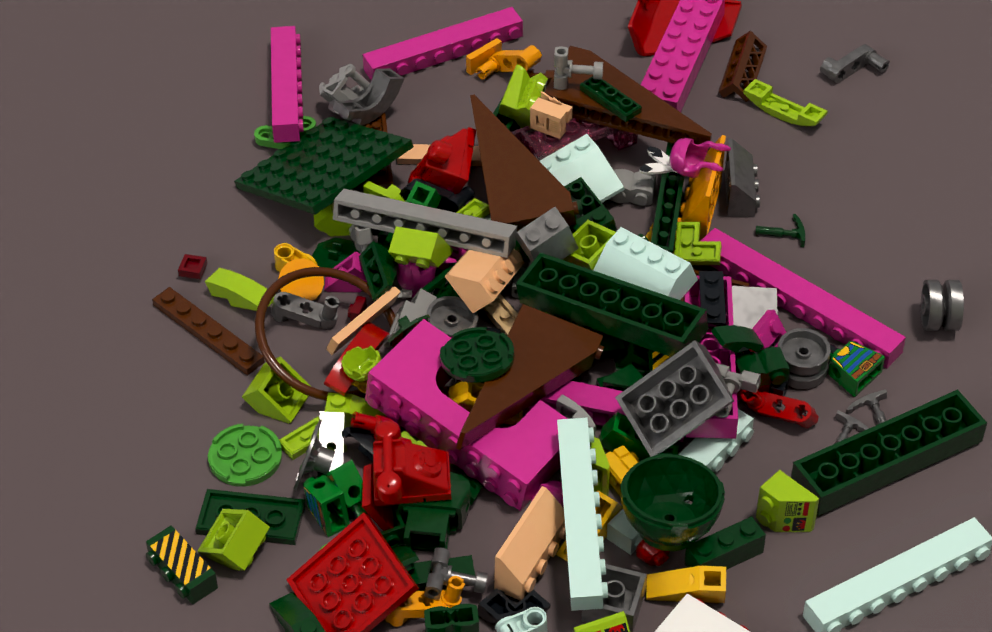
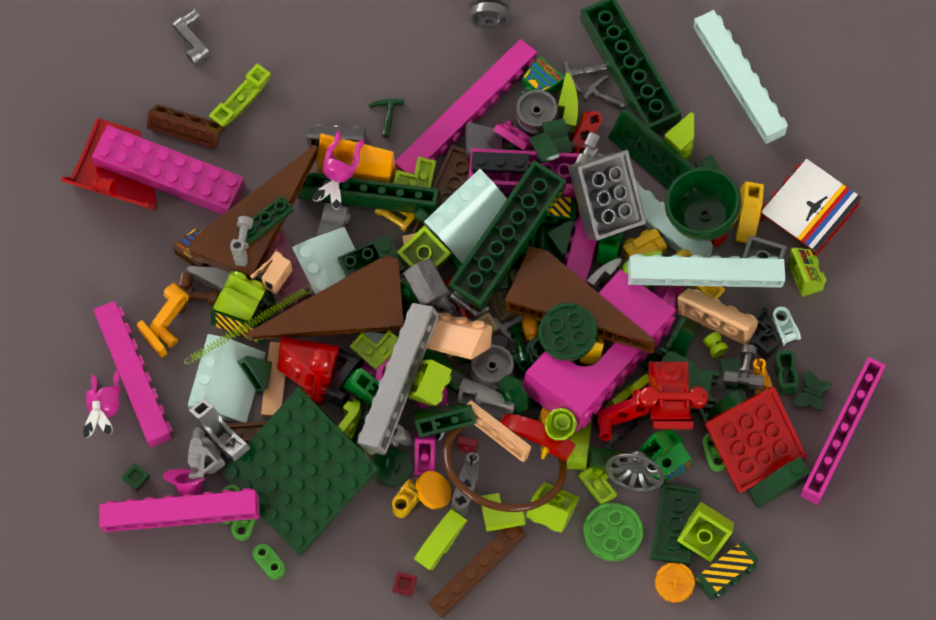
camera: 85 degrees left, 20 degrees up
(174, 511) = (674, 582): none -> light orange tile
(229, 161) = (268, 560): none -> bright green plate
(277, 337) = (498, 519): none -> lime tile
(311, 87) = (183, 483): none -> dark pink piece
(328, 56) = (135, 477): none -> dark green plate
(405, 19) = (101, 405): none -> dark pink hair
(433, 109) = (223, 380): none -> light aqua slope
(446, 126) = (257, 372): none -> dark green slope
(481, 490) = (673, 335): none -> dark green piece
(487, 551) = (715, 344): none -> lime wheel
(498, 109) = (249, 326): none -> lime piece
(502, 517) = (685, 337): none -> dark green slope
(781, 456) = (649, 149): none -> dark green plate
(827, 393) = (569, 103): none -> lime slope

